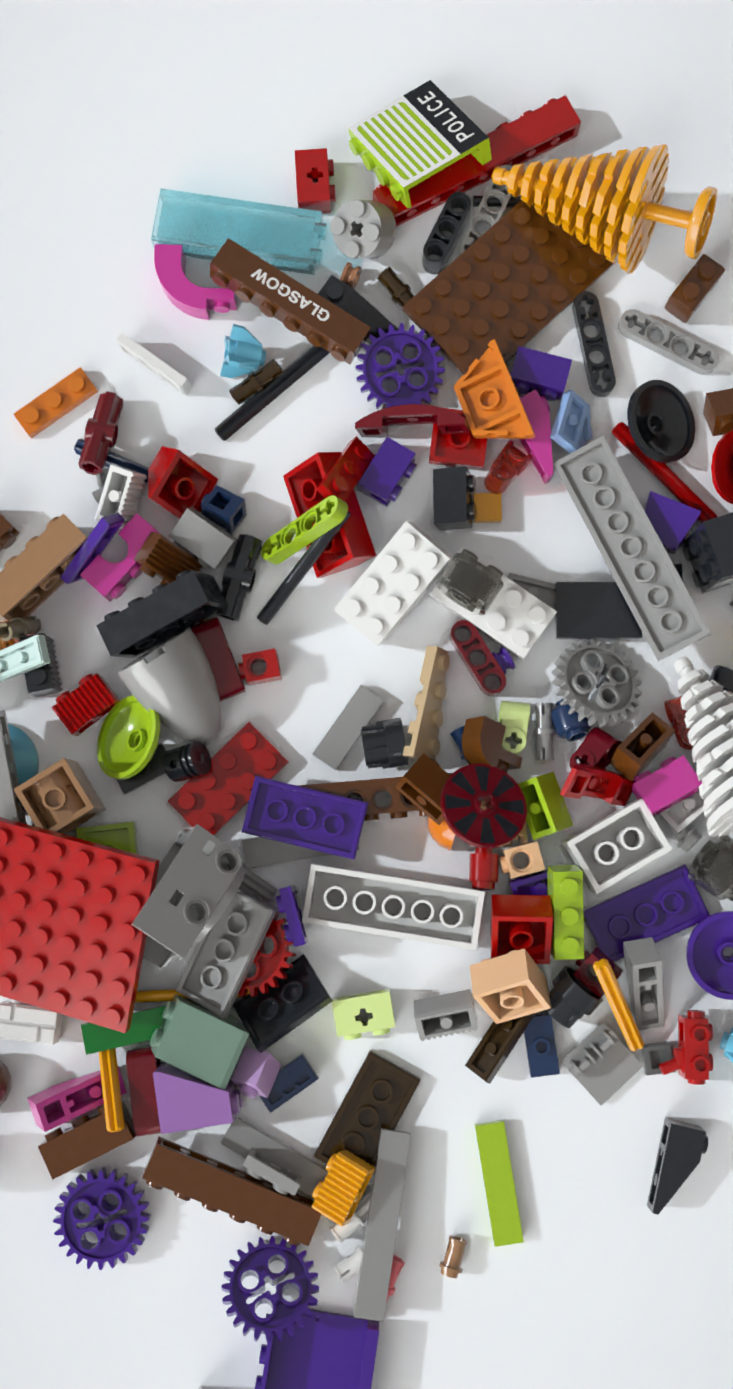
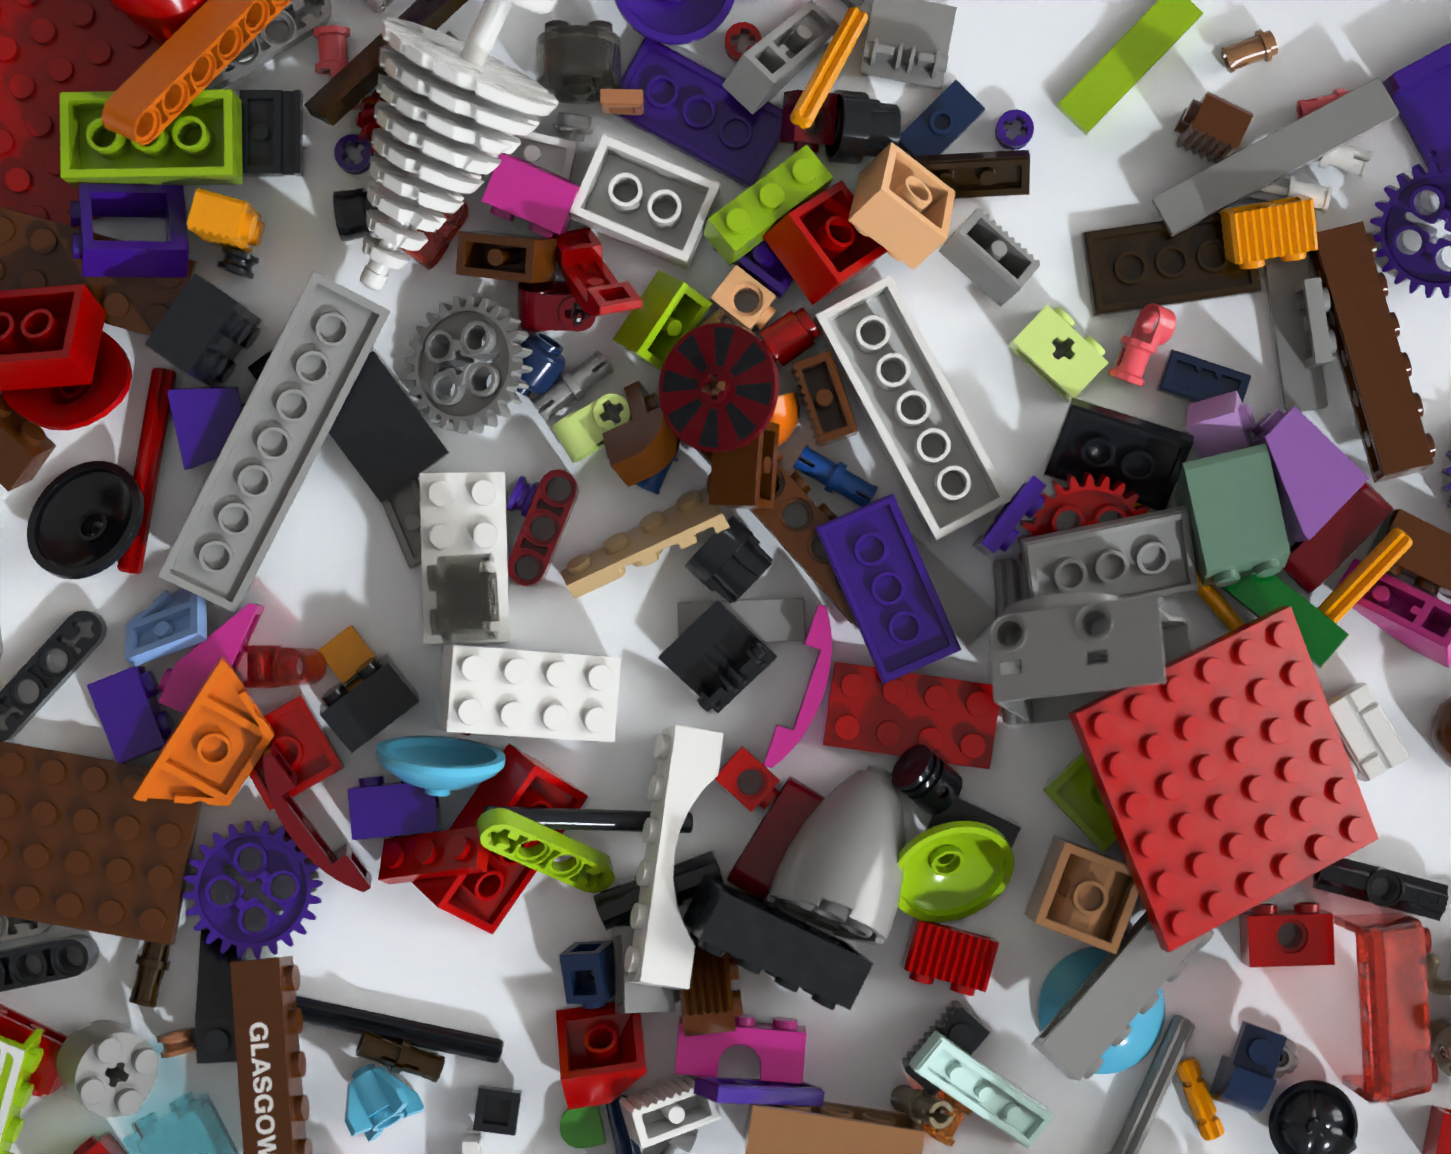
camera: 135 degrees left, 5 degrees up
(146, 448) = (583, 1127): none -> bright green tile
(190, 411) = (497, 1110): none -> black plate
(207, 552) = (661, 945): none -> white arch
(268, 704) = (784, 738): none -> dark pink slope
(333, 1065) = (1143, 343): none -> coral connector
(338, 699) = (717, 657): none -> black hinge
(387, 837) = (835, 477): none -> blue pin
(393, 508) = (439, 762): none -> medium azure dish
(425, 1200) = (1212, 127): none -> reddish brown brick
(435, 862) = (824, 399): none -> reddish brown brick
(516, 1087) = (1009, 118): none -> dark purple bush
(676, 968) = (734, 33): none -> red bush
(682, 874) = (622, 101): none -> nougat tile

